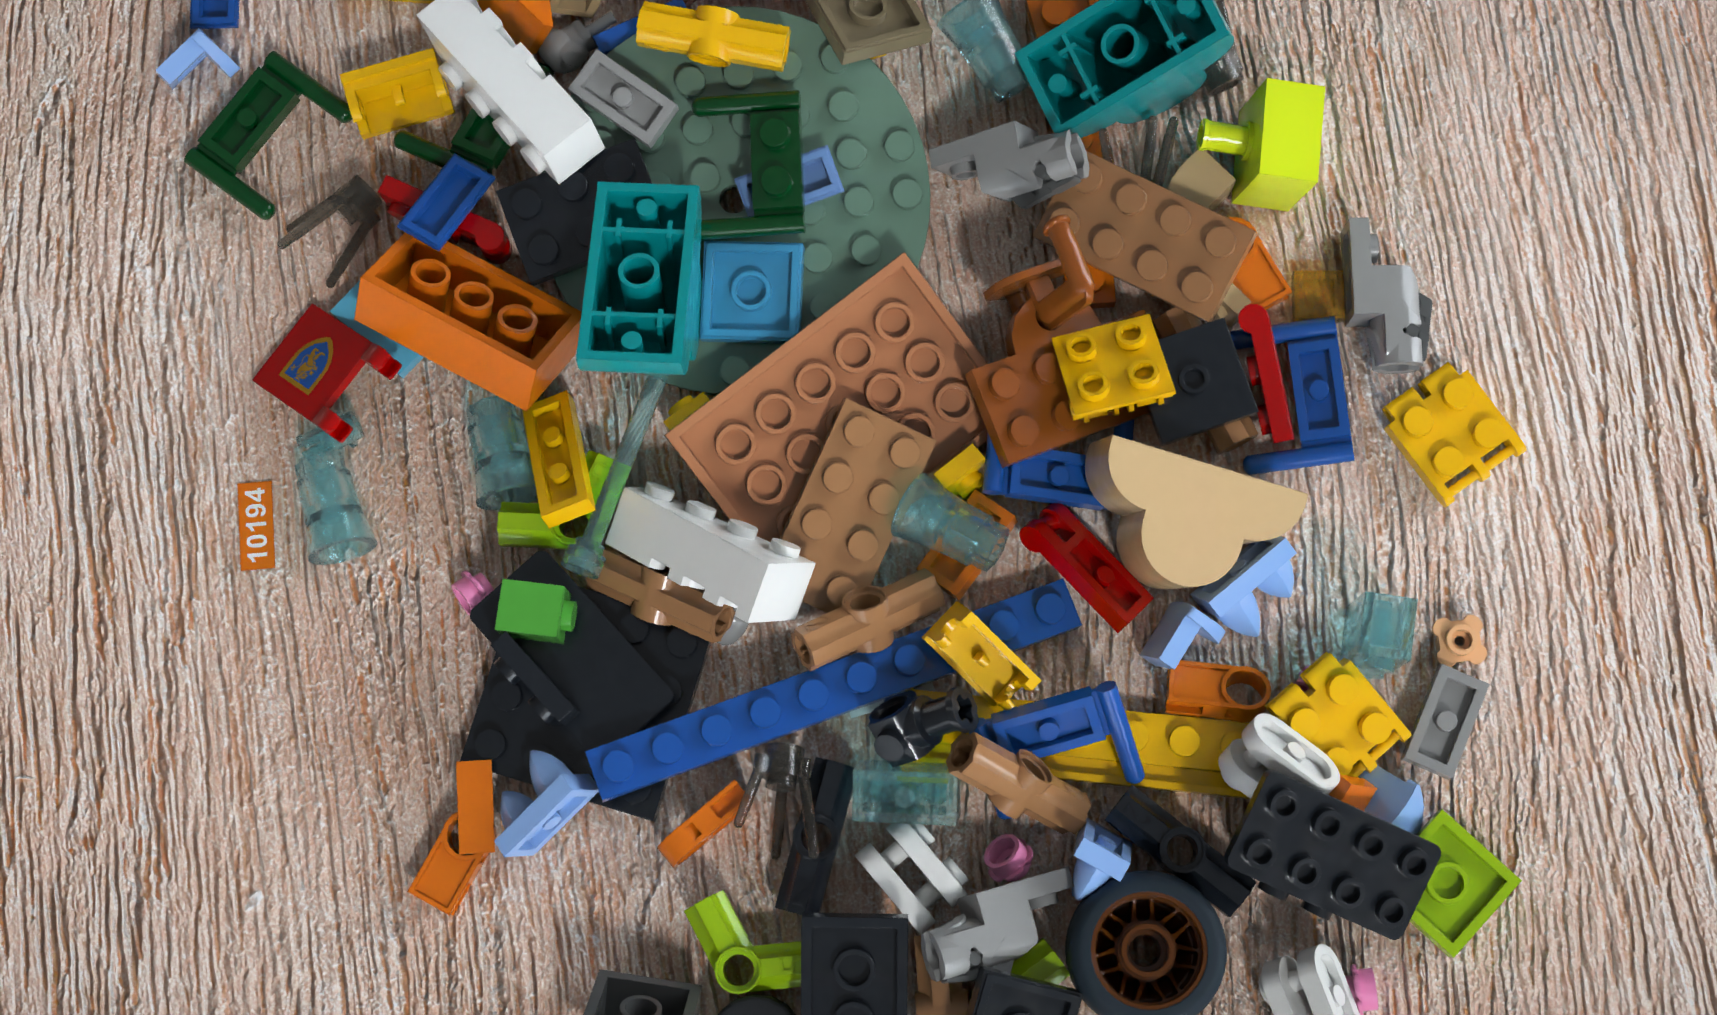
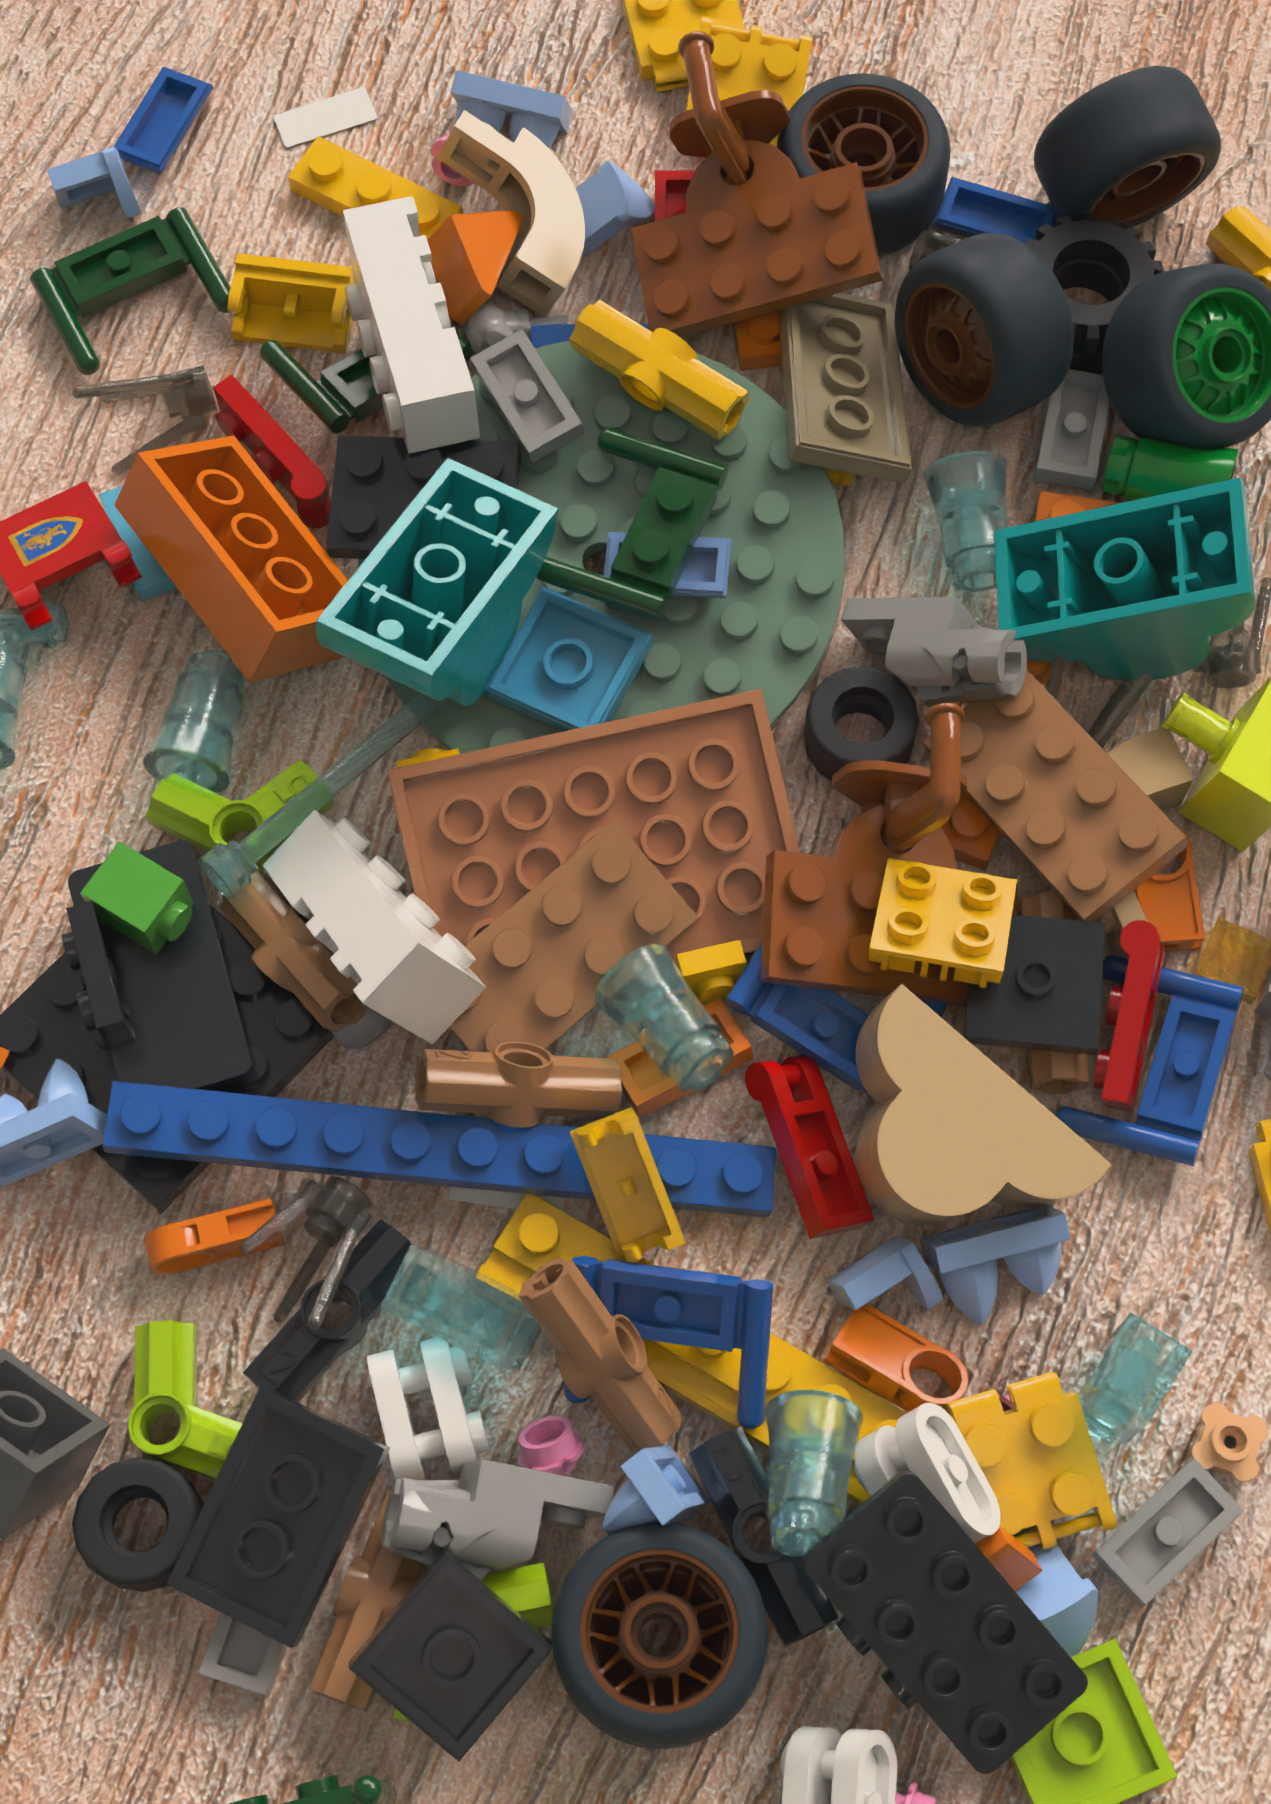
camera: 20 degrees right, 10 degrees down
(446, 202) = (279, 426): blue tile -> none
(471, 590) = (88, 851): bright pink plate -> none
(558, 460) = (257, 752): yellow plate -> none
(913, 725) = (514, 1226): black connector -> none
(984, 212) = (865, 692): none -> black tyre
(1195, 794) = (809, 1465): none -> clear light blue plant

